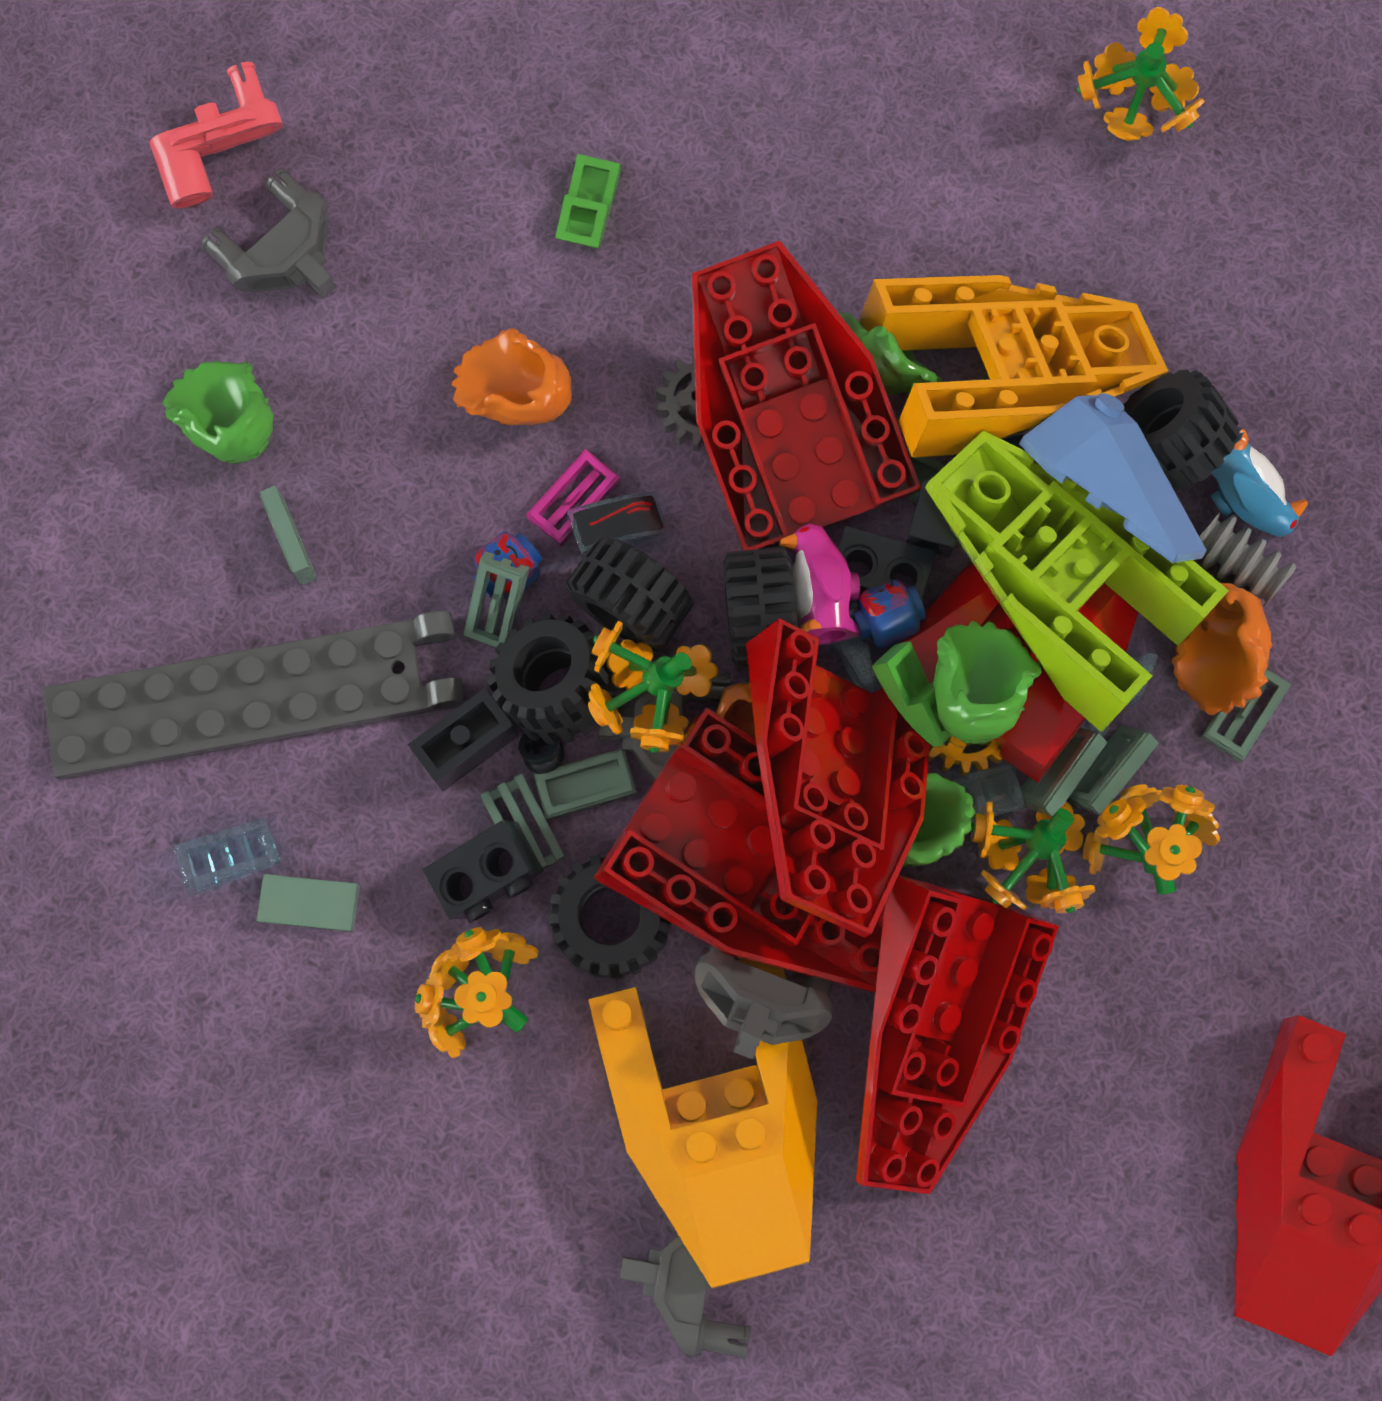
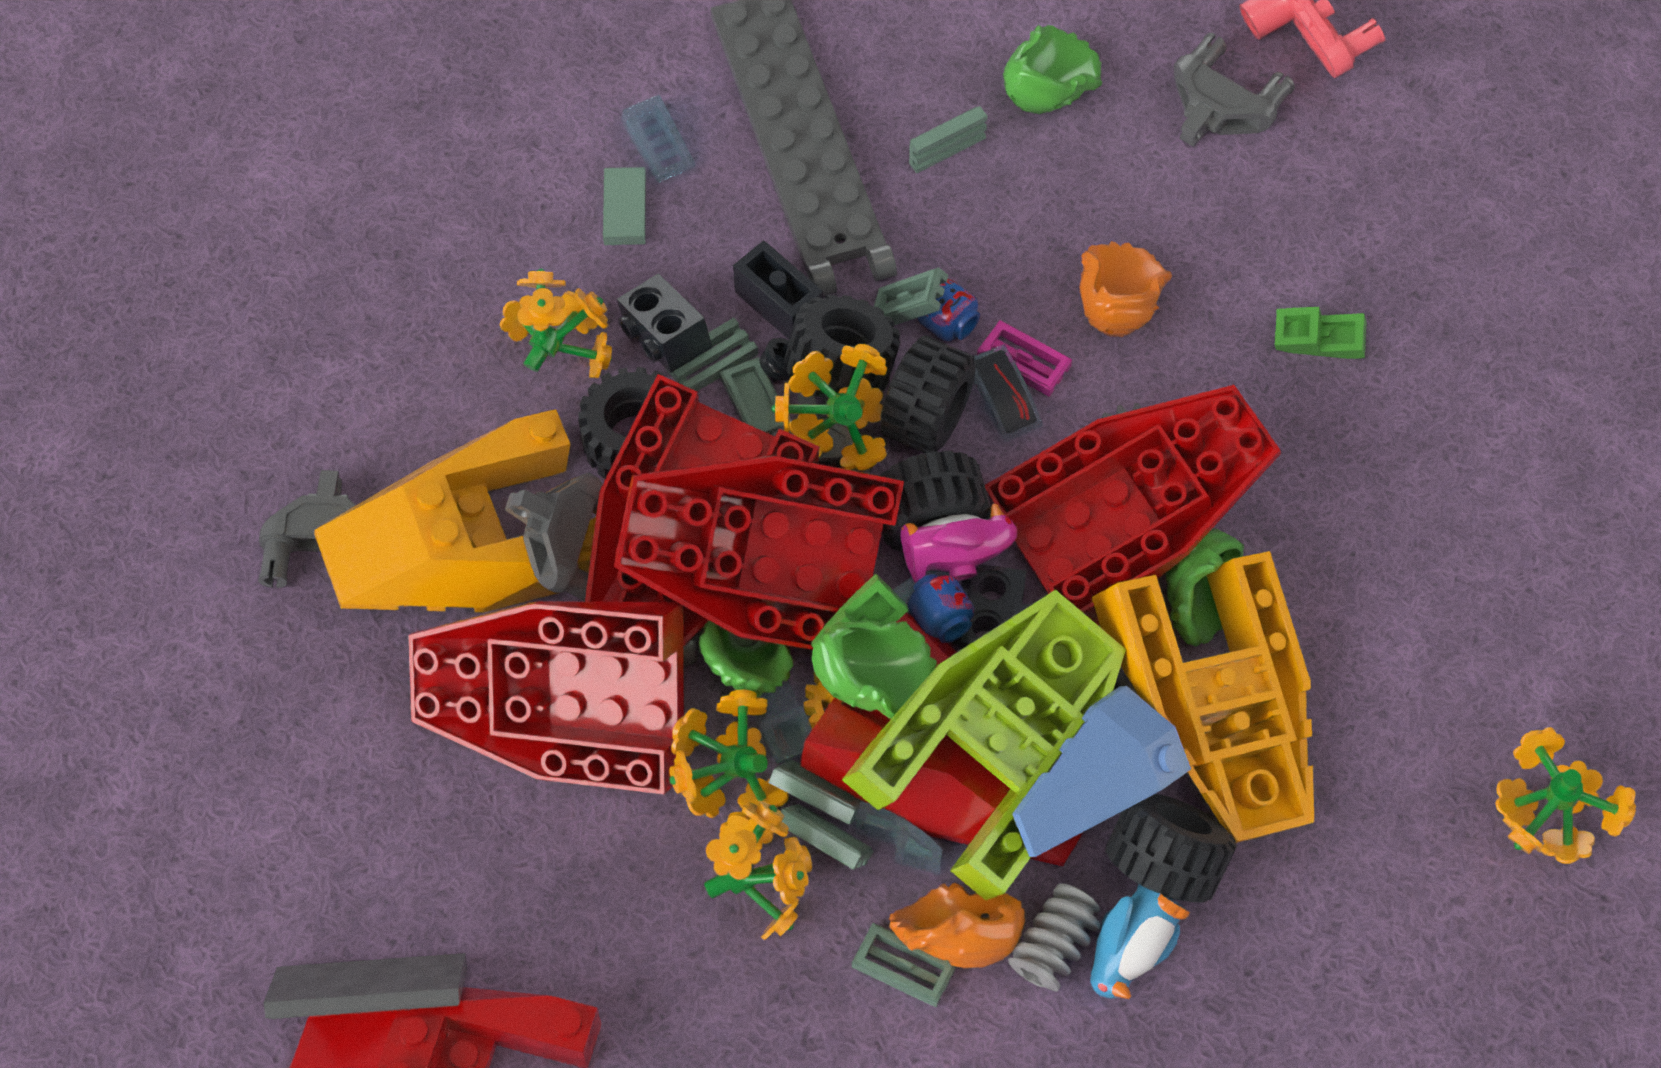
camera: 80 degrees right, 15 degrees down
(1249, 1260) = (366, 986): none -> dark grey tile

